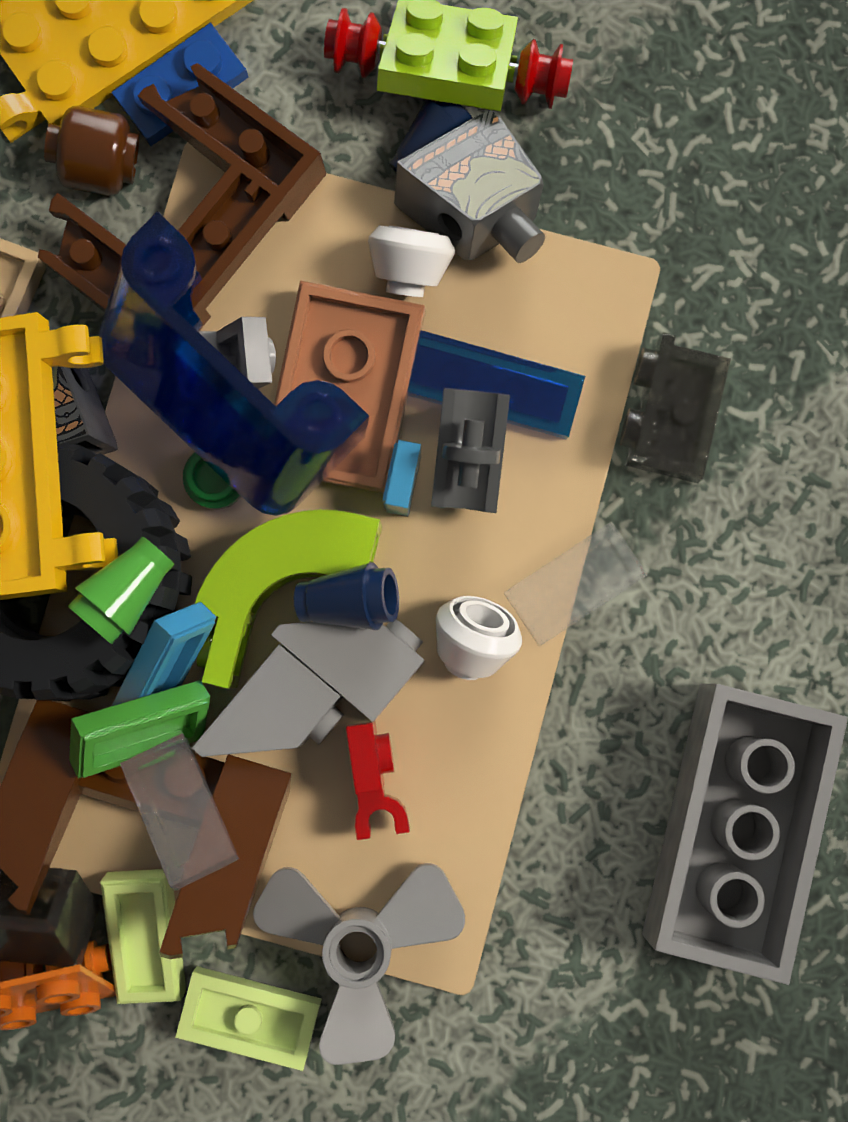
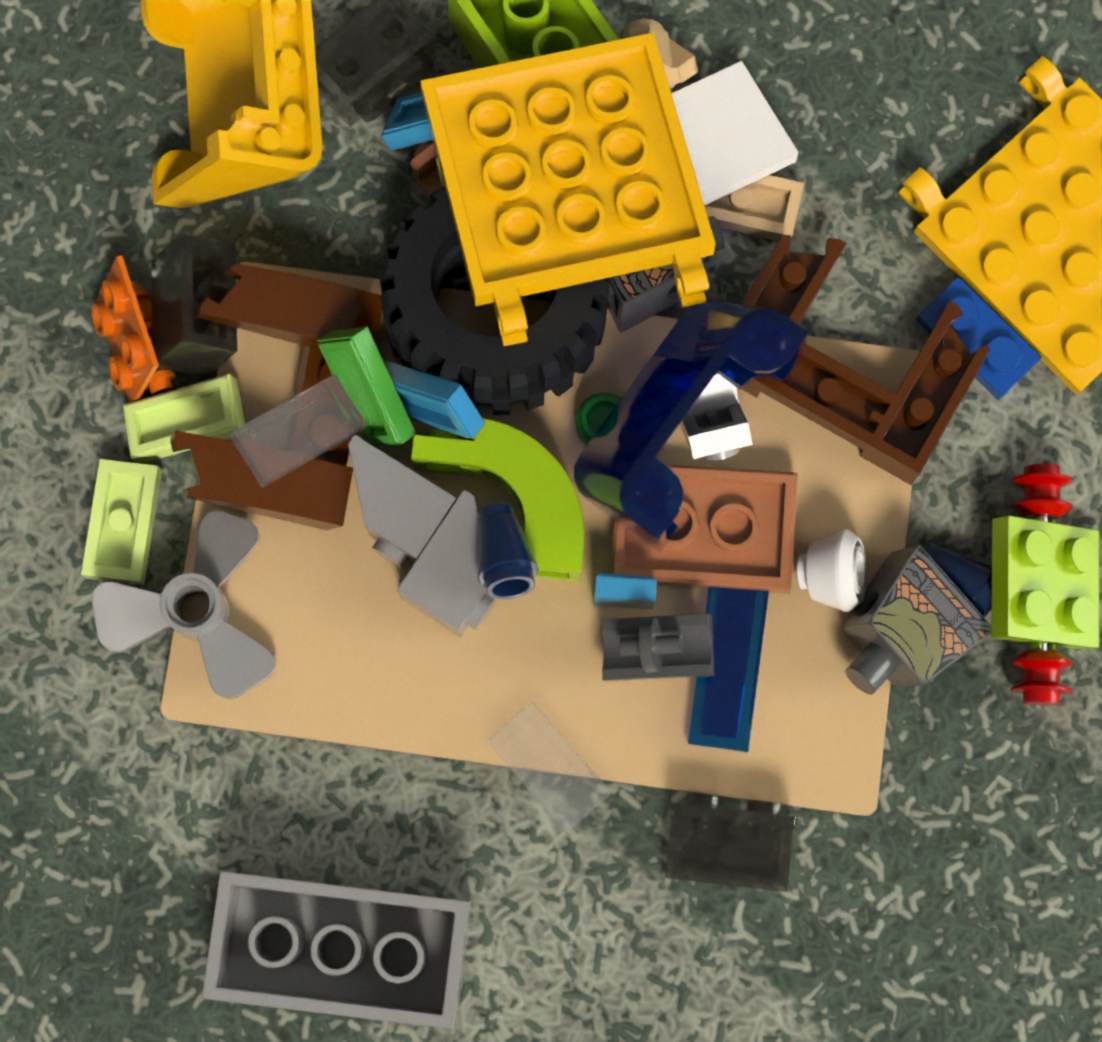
camera: 80 degrees right, 5 degrees down
(92, 150) = (897, 268): reddish brown head -> none
(121, 590) = (480, 351): bright green cone -> none
(370, 759) = (361, 595): red plate -> none
(475, 637) = (487, 677): white cone -> none

